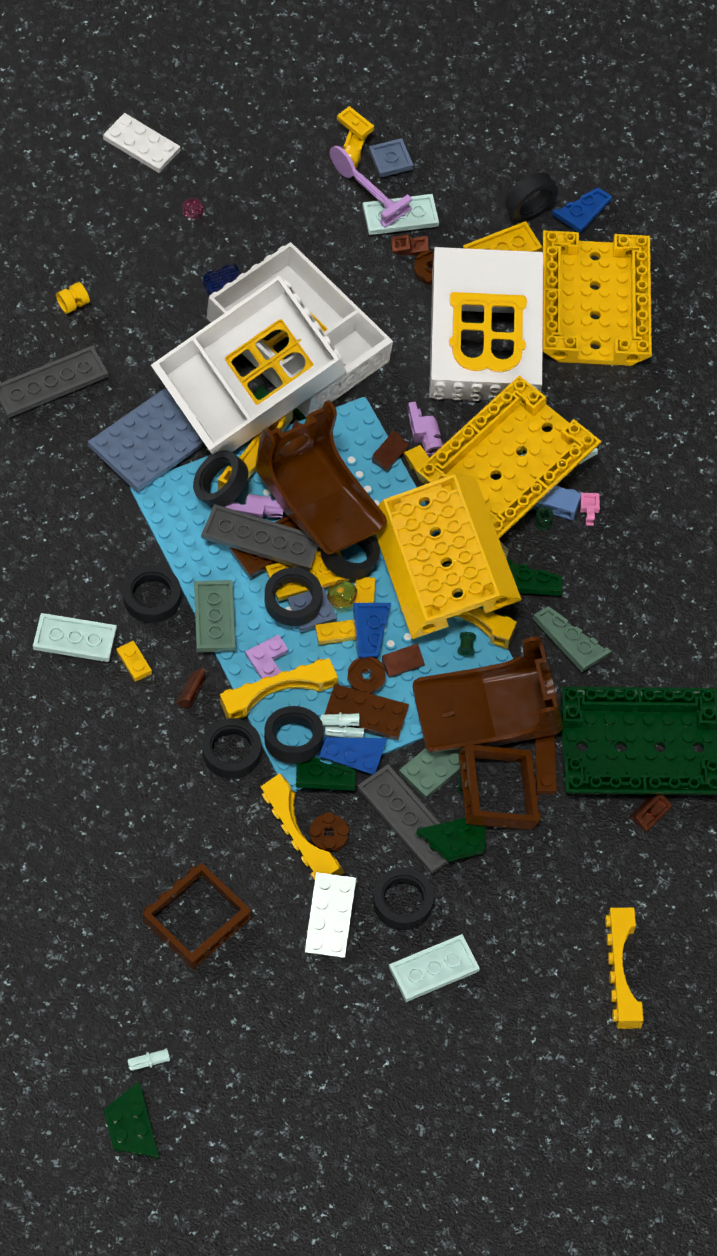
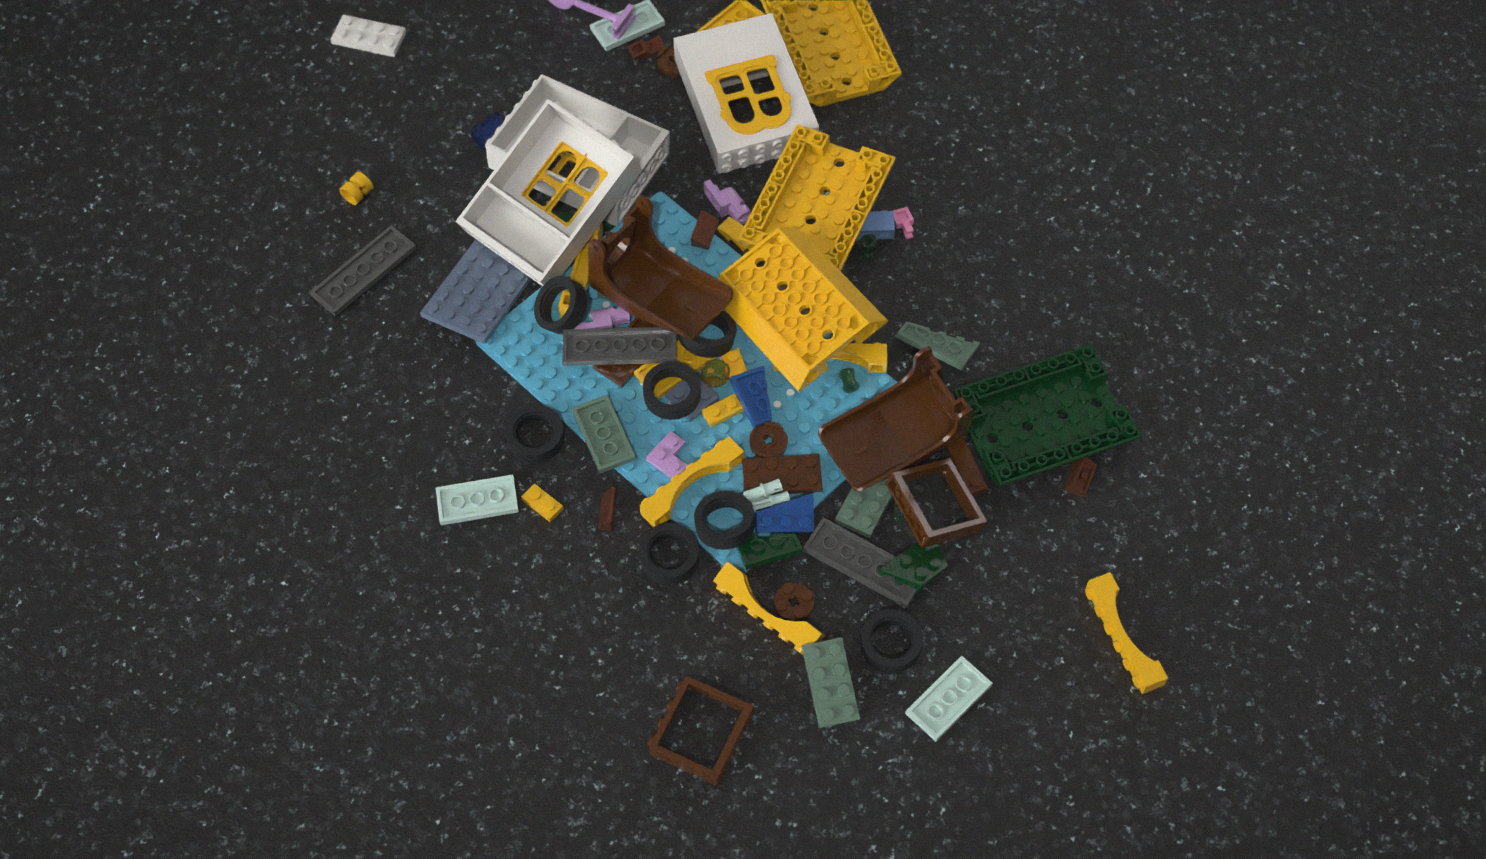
camera: 15 degrees left, 0 degrees up
(192, 212) = (437, 76): clear pink plate -> none
(403, 660) = (796, 415): copper slope -> none
(535, 582) = (890, 301): dark green wing -> none

